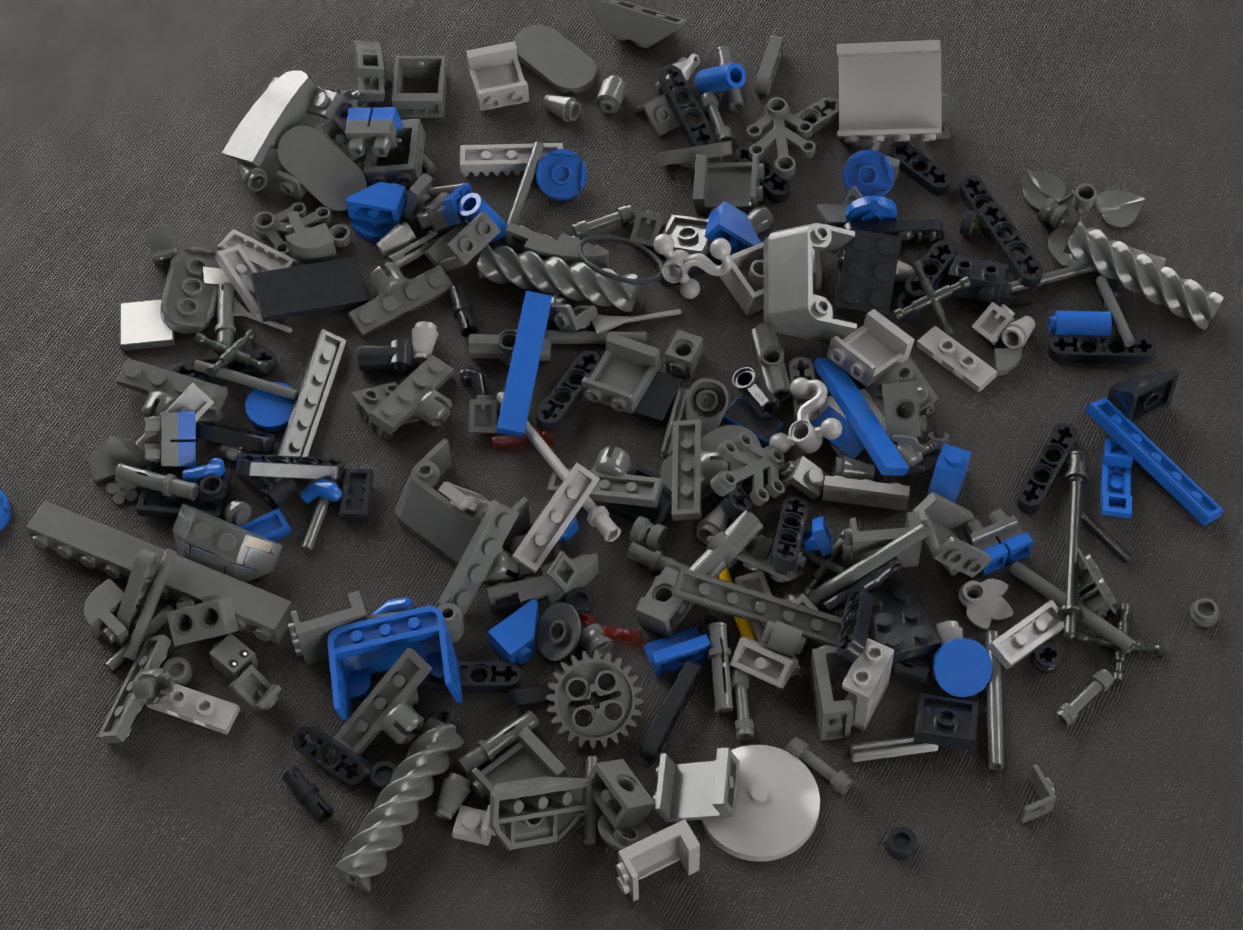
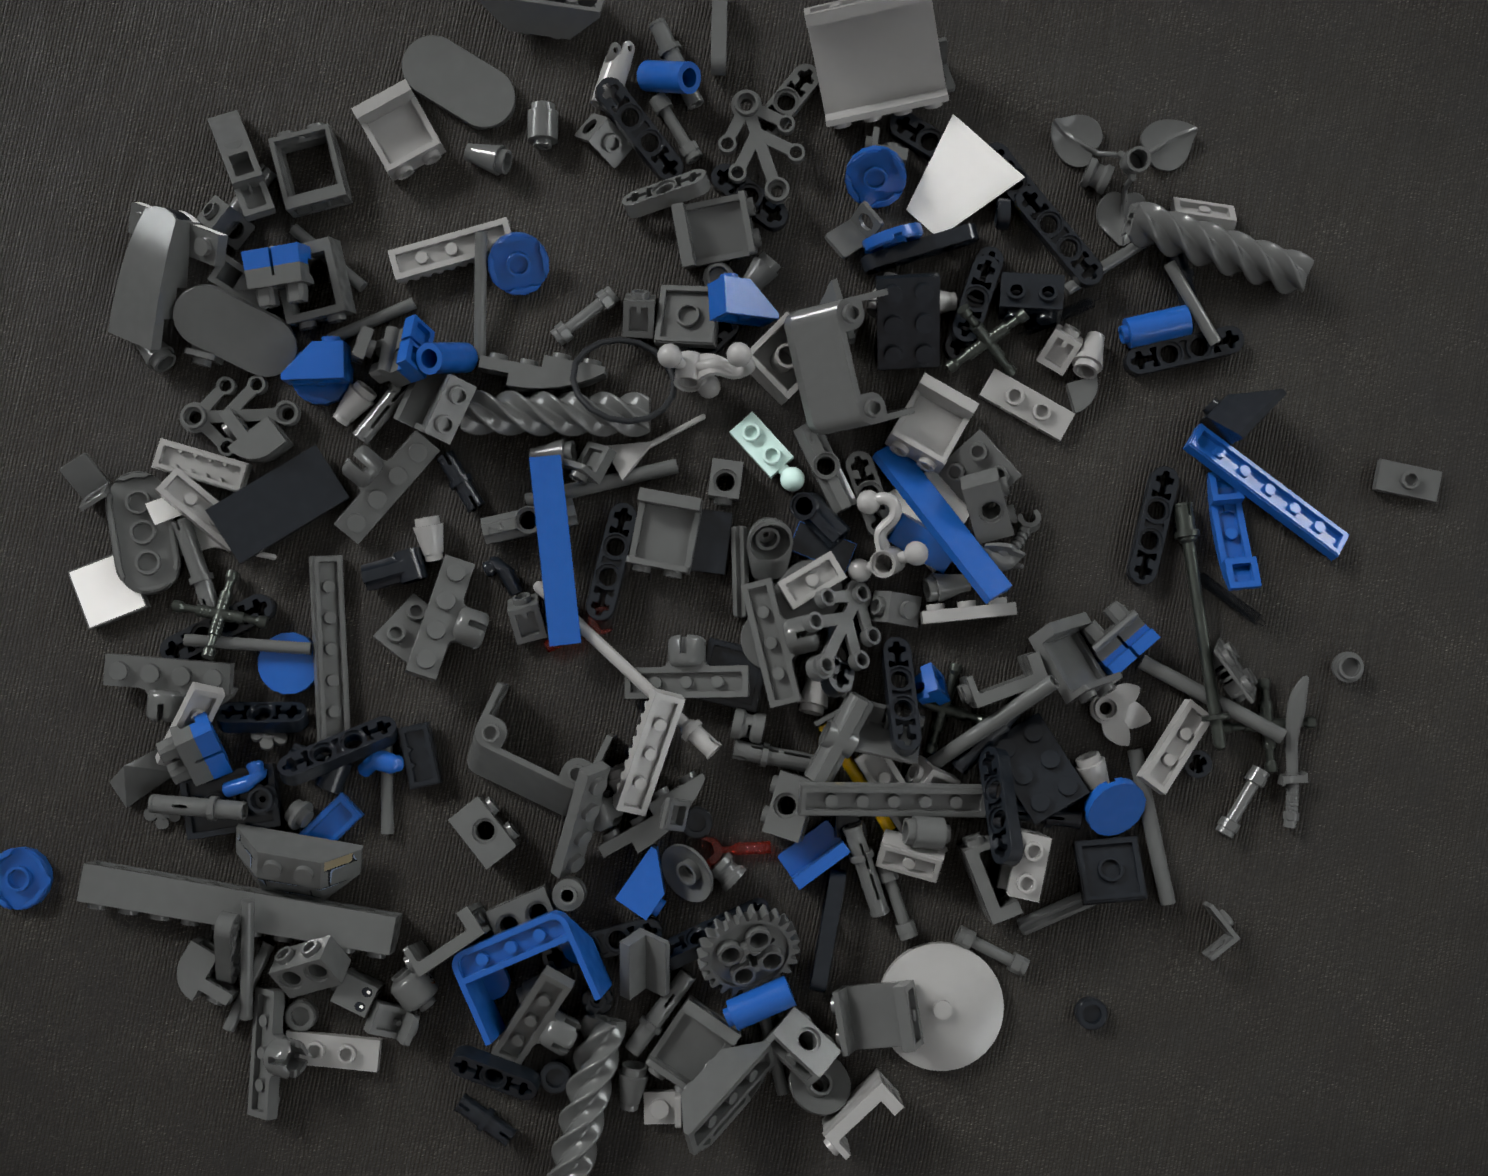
camera: 15 degrees left, 30 degrees up
(285, 667) = (414, 991): none -> dark grey head
(394, 576) = (468, 822): none -> dark grey brick
(395, 605) = (505, 880): blue arm -> none
(464, 498) = (547, 750): light grey plate -> none
(496, 690) = (644, 964): none -> dark grey panel
(591, 748) = (759, 1003): none -> blue brick
(724, 342) = (767, 452): none -> light aqua plate
(731, 429) = (808, 580): none -> light grey plate
(940, 191) = (960, 179): none -> white sticker
(950, 472) = (1051, 573): blue slope -> none
(1135, 687) = (1294, 717): none -> dark grey sword

